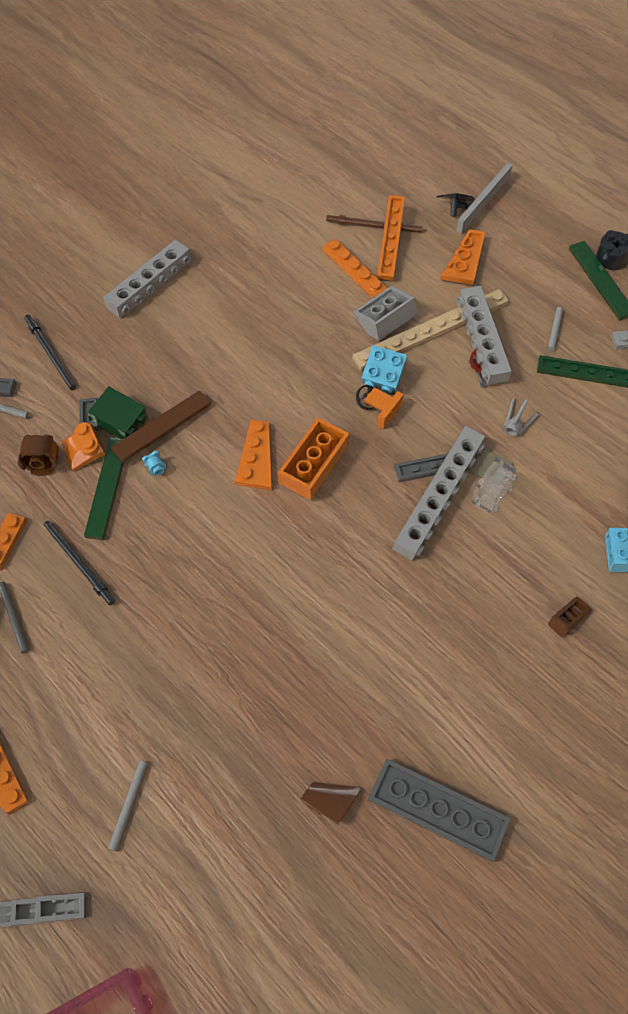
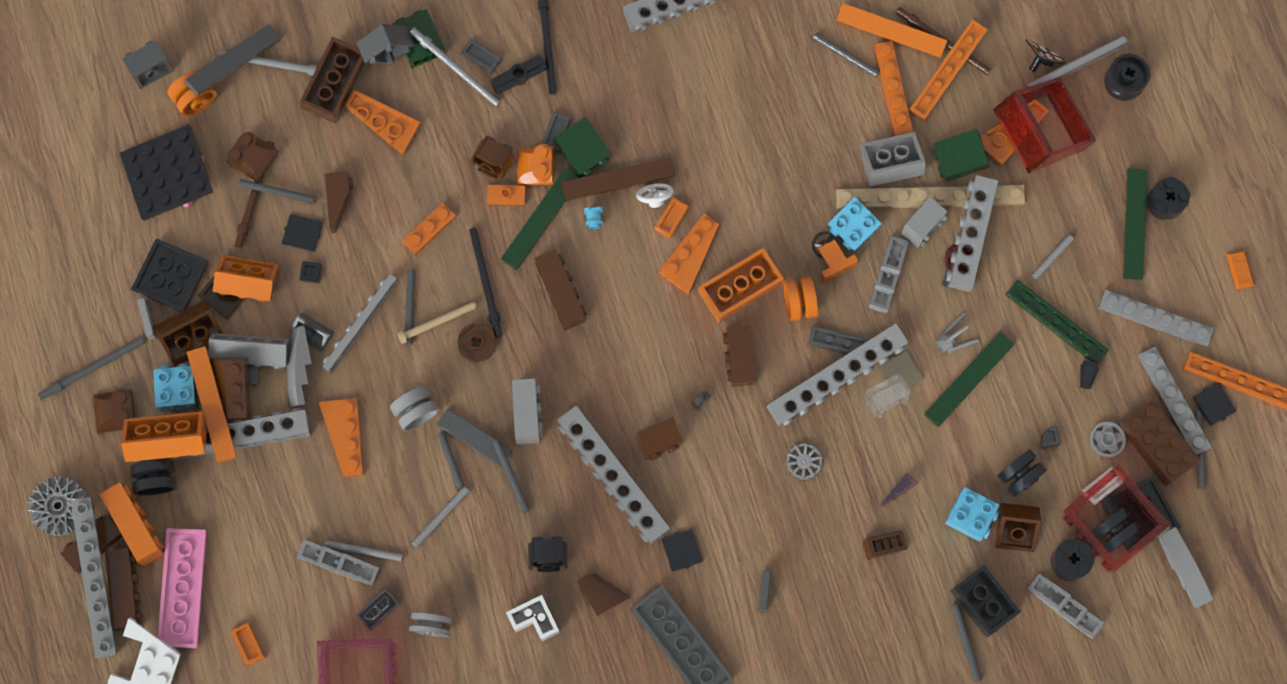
camera: 20 degrees right, 15 degrees up
(16, 645) = (435, 322): none -> tan bar
(34, 384) = (529, 69): none -> black piece
(54, 706) = (414, 408): none -> light grey wheel
(60, 882) = (364, 550): none -> light grey bar
(65, 482) = (506, 195): none -> orange plate
(96, 628) = (476, 353): none -> reddish brown plate
(100, 941) = (377, 609): none -> slope
(115, 742) = (450, 460): none -> dark grey bar
(129, 708) = (470, 436): none -> dark grey tile
(152, 536) = (560, 290): none -> reddish brown brick
(165, 928) = (430, 624): none -> light grey wheel
(170, 655) = (527, 411): none -> light grey brick
(183, 727) = (511, 476): none -> dark grey bar
(200, 422) = (655, 197): none -> white piece
(222, 640) = (575, 418): none -> light grey brick
(224, 436) = (671, 218): none -> orange tile
(256, 785) = (547, 554): none -> black brick
(274, 855) = (534, 613): none -> white brick
(303, 262) = (845, 54): none -> dark grey bar
(310, 620) = (659, 439): none -> reddish brown slope
(330, 231) = (891, 30): none -> orange tile
(330, 570) = (700, 399): none -> dark grey tile
(345, 516) = (739, 356): none -> reddish brown brick
(372, 443) = (800, 298): none -> orange wheel
(387, 716) = (682, 550): none -> black piece
(434, 397) = (888, 274): none -> light grey slope
(438, 286) = (961, 155): none -> dark green brick
(440, 343) = (924, 223): none -> light grey container
(453, 578) = (804, 461): none -> light grey wheel
(487, 240) = (1026, 133): none -> clear red windscreen
(488, 714) = (764, 591): none -> dark grey tile
(527, 188) = (1127, 77): none -> black wheel
(551, 447) = (969, 379): none -> dark green tile
(553, 557) = (901, 488): none -> clear purple slope

